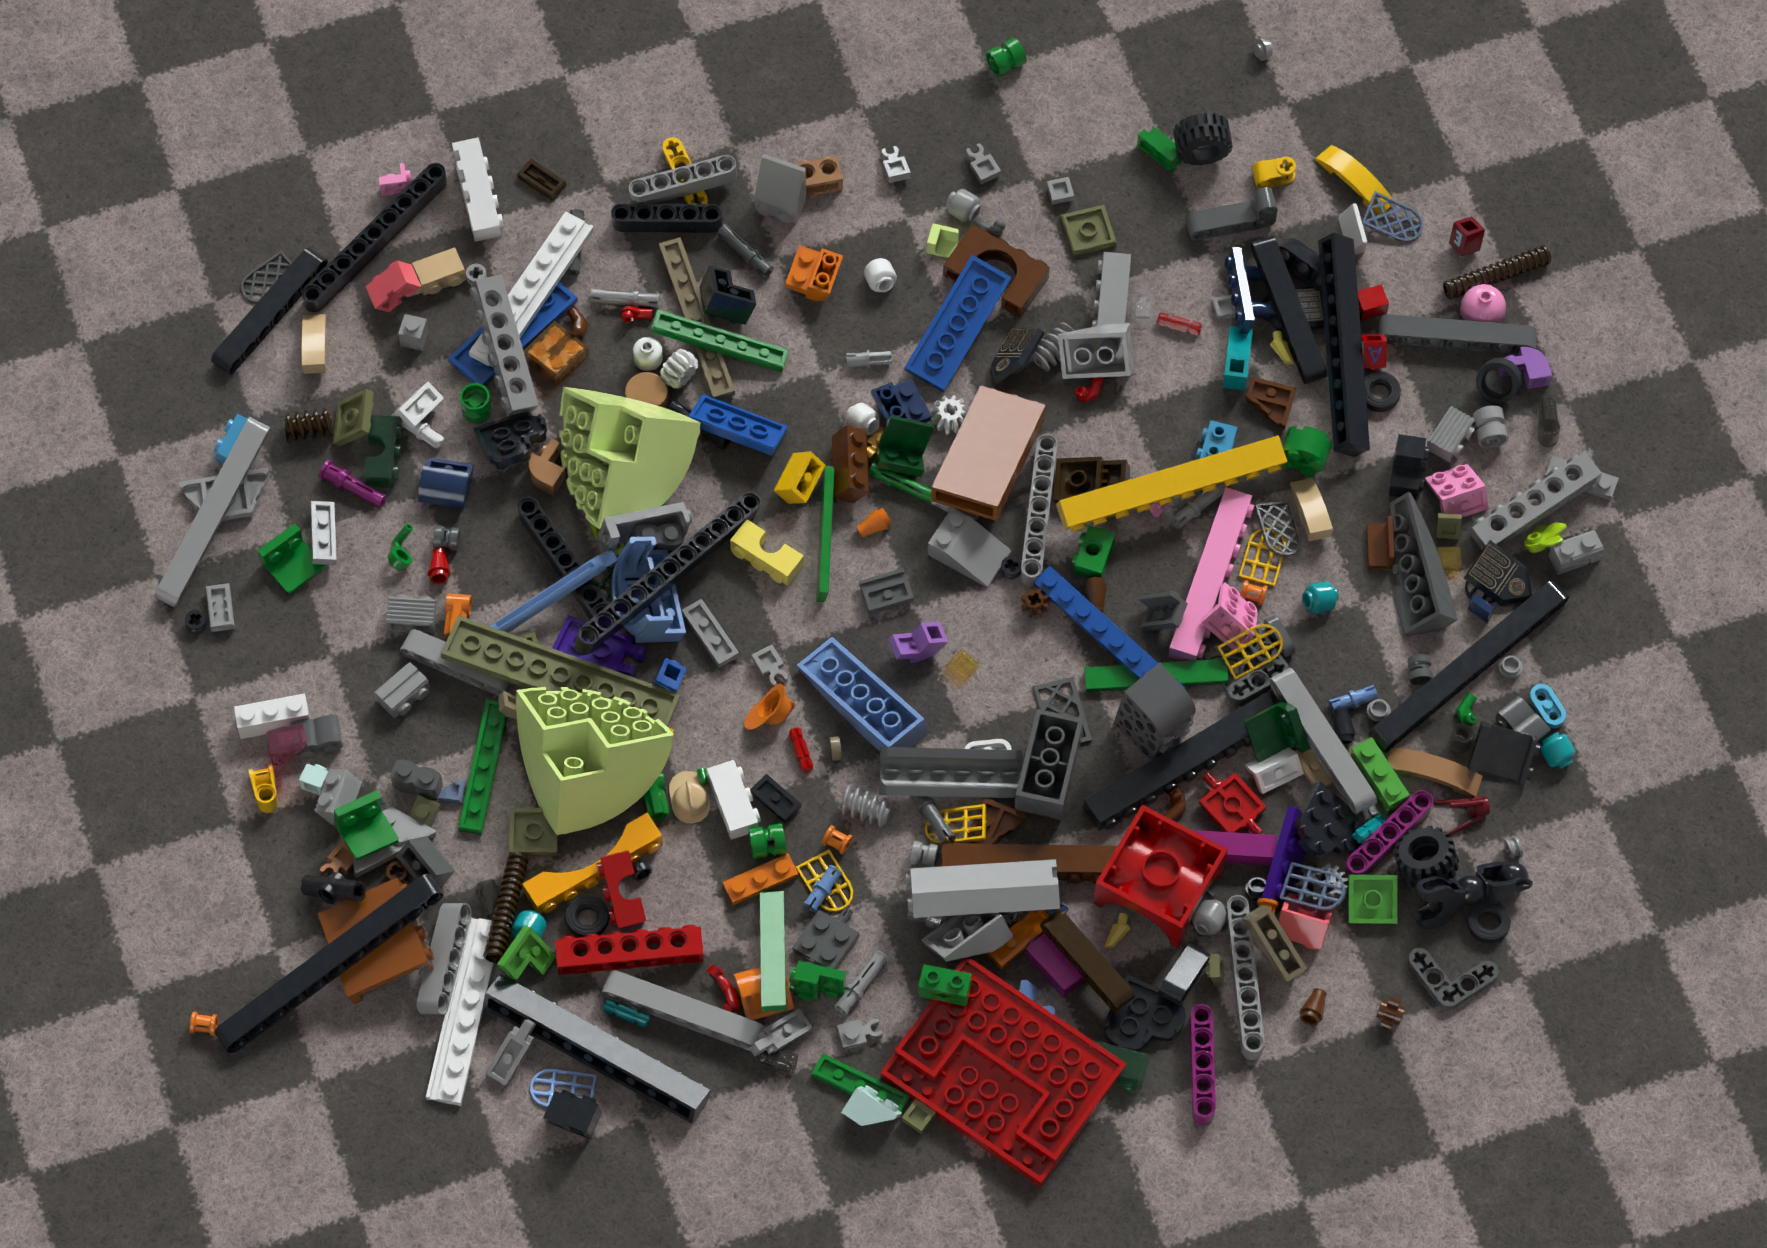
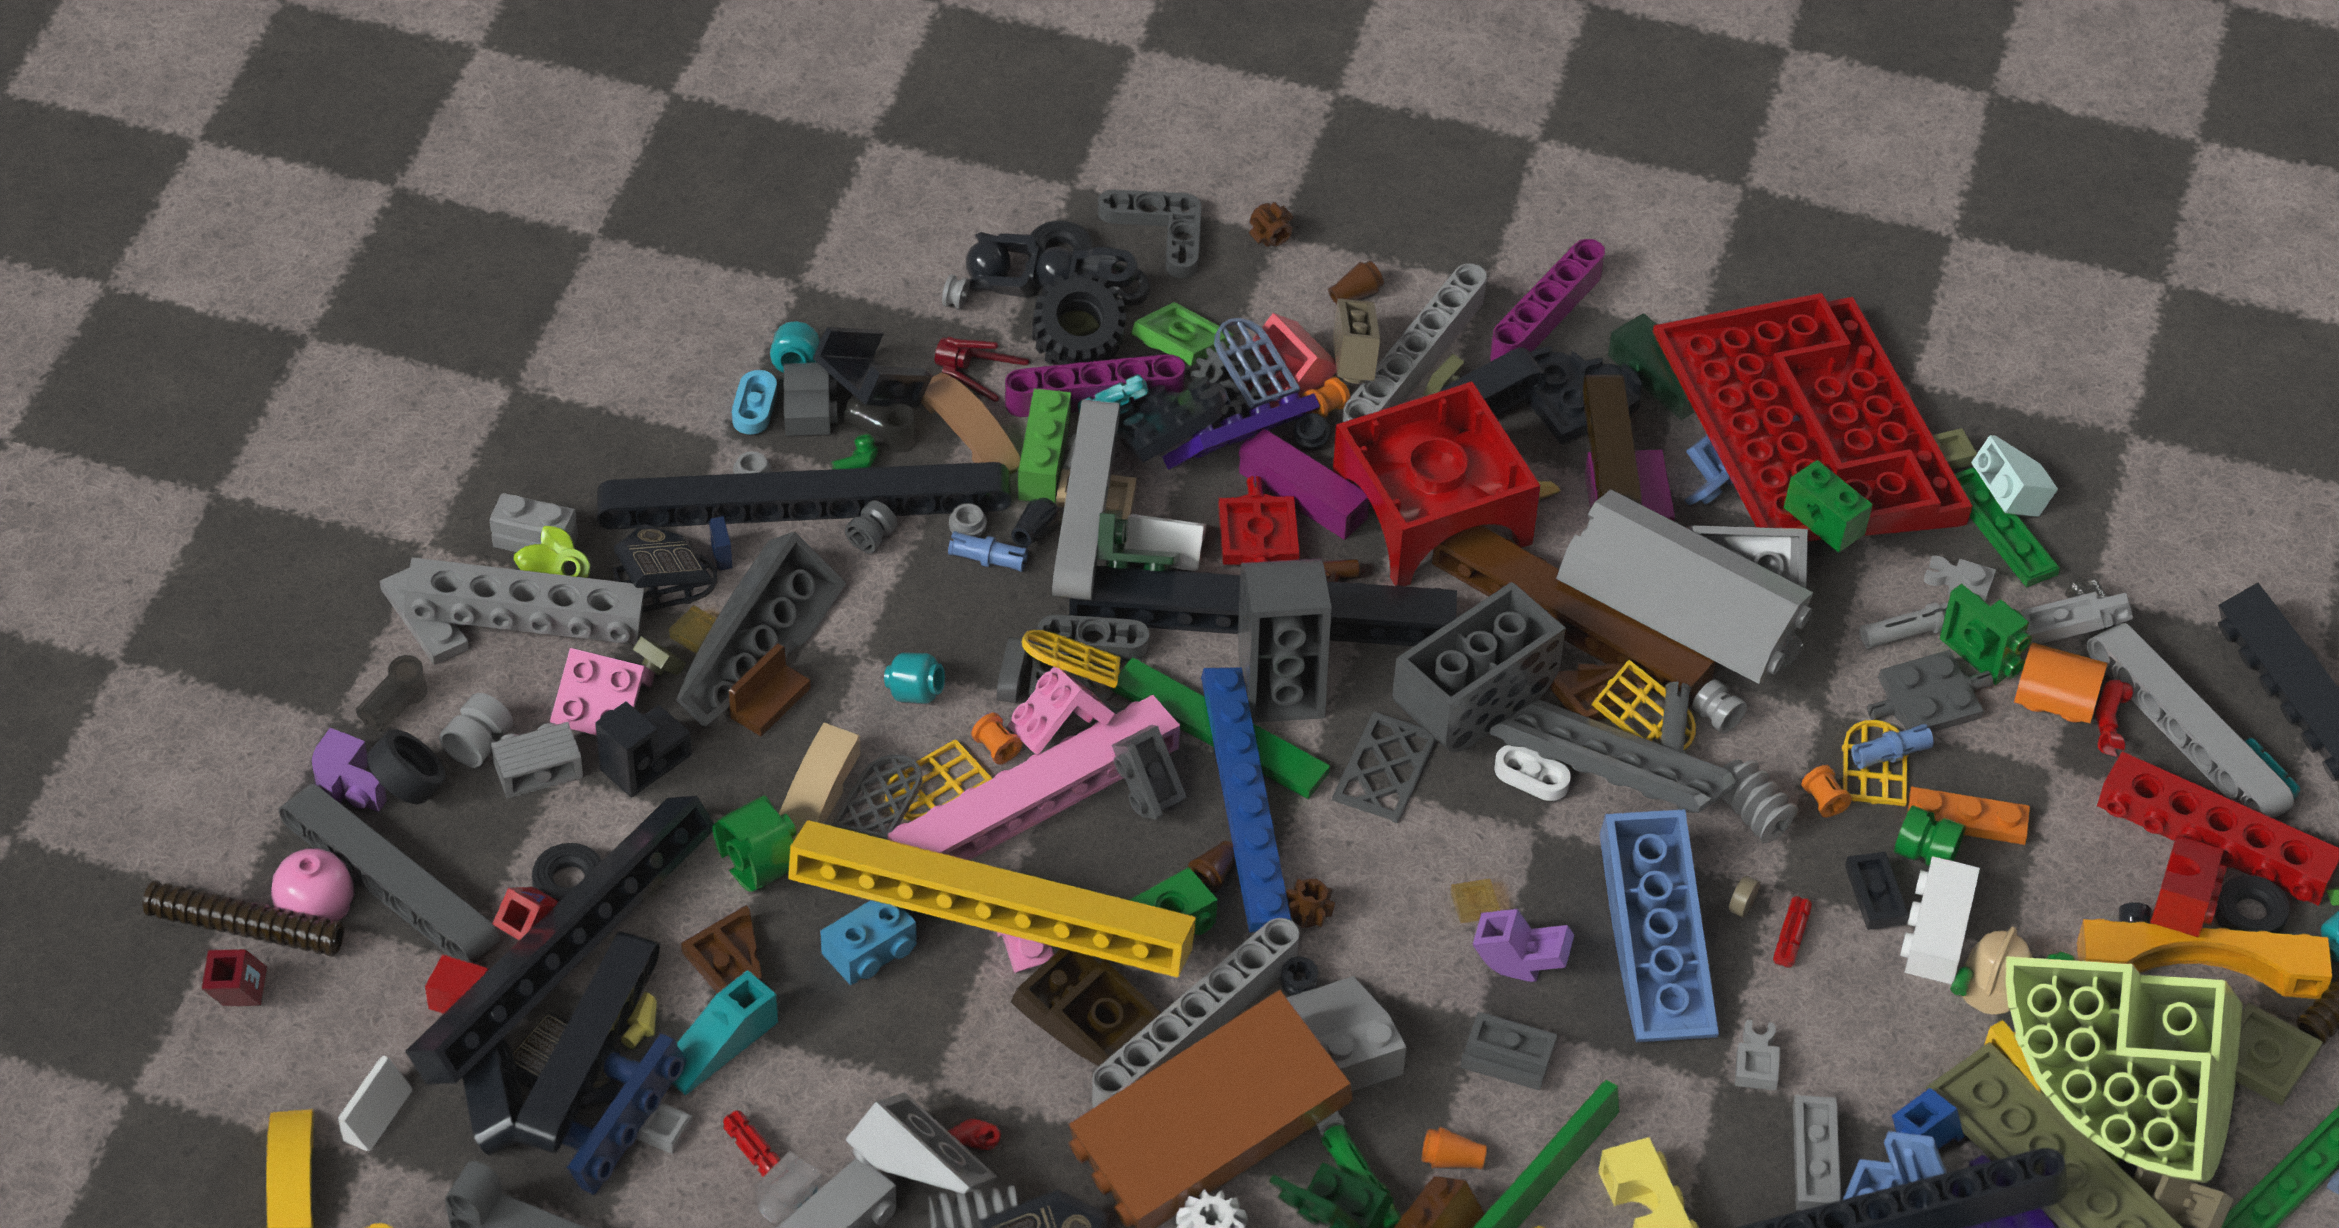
camera: 145 degrees left, 15 degrees down
(770, 709) = (1810, 995): orange piece -> none
(773, 951) = (2023, 695): tile -> none
(1403, 207) = (323, 1067): sand blue window -> none

